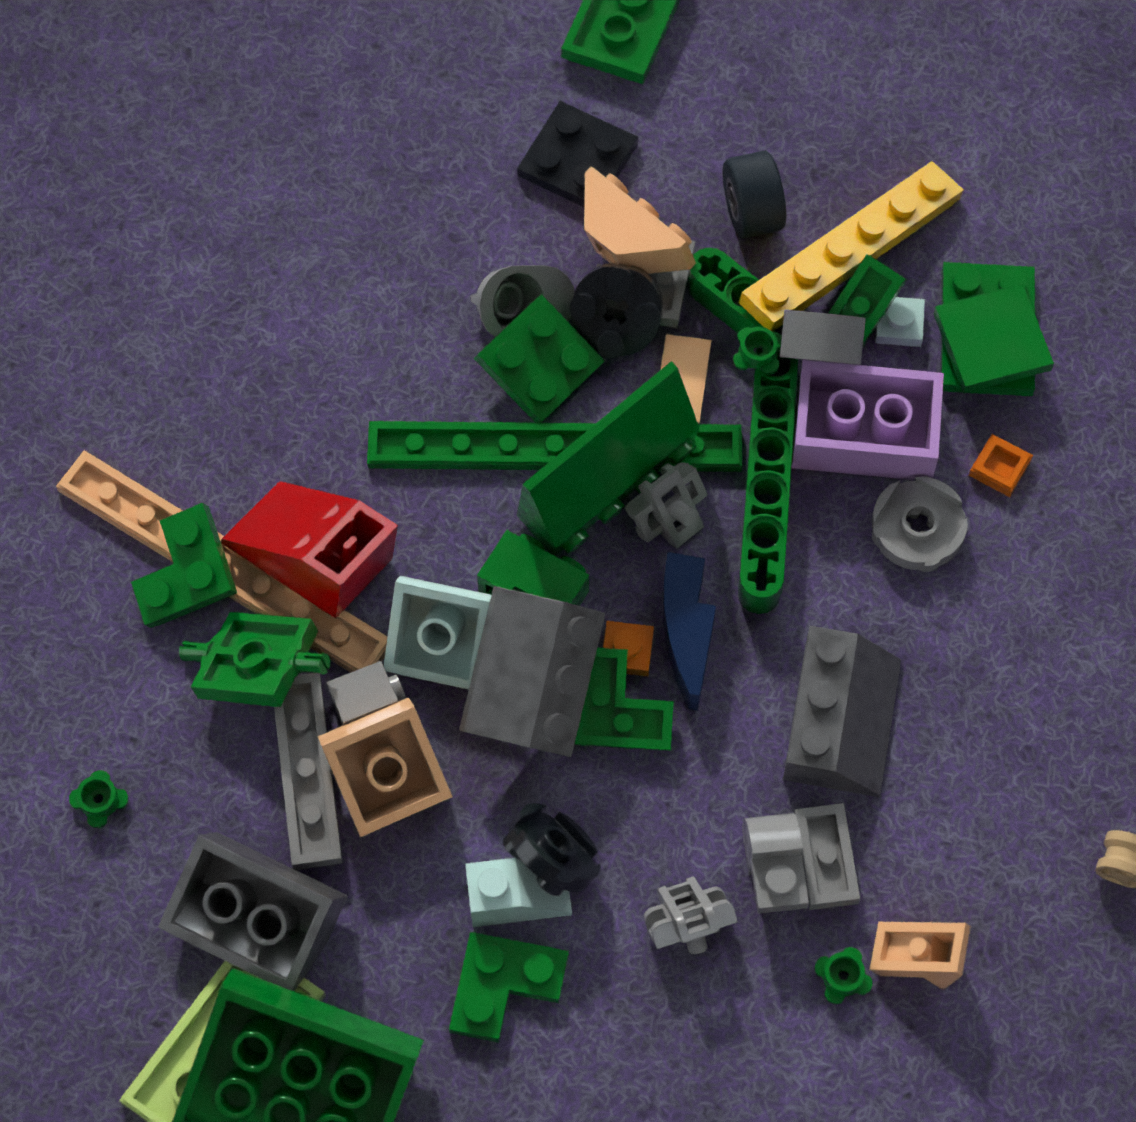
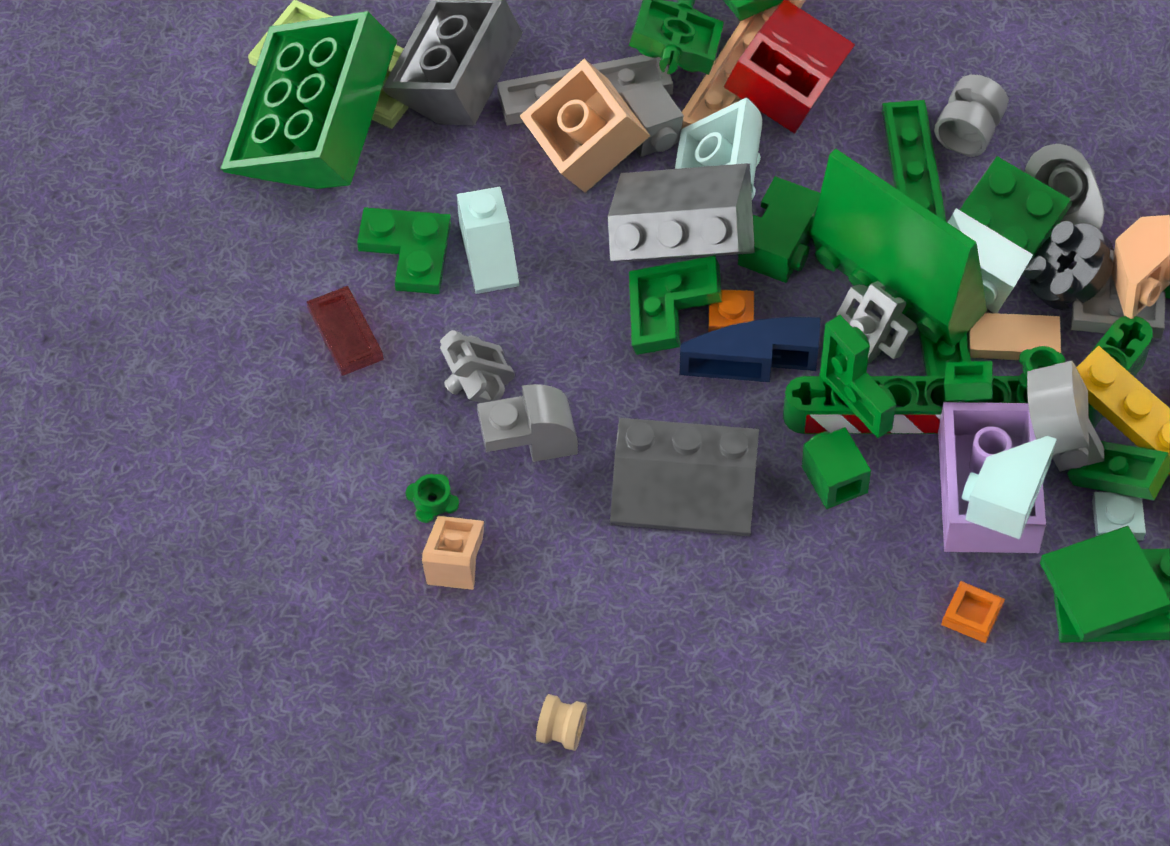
camera: 85 degrees right, 10 degrees down
(402, 373) = (971, 115): none -> light grey wheel
(552, 849) = (501, 256): black plate -> none
(599, 387) = (999, 259): none -> light aqua slope
(614, 1060) = (345, 330): none -> clear red tile
(771, 515) = (845, 371): none -> green plate
(774, 416) = (968, 381): none -> green plate
(827, 857) = (542, 475): light grey plate -> none
(837, 565) = (835, 467): none -> green brick
(915, 390) = (1008, 486): none -> light aqua slope
(920, 549) = (894, 562): light grey plate -> none

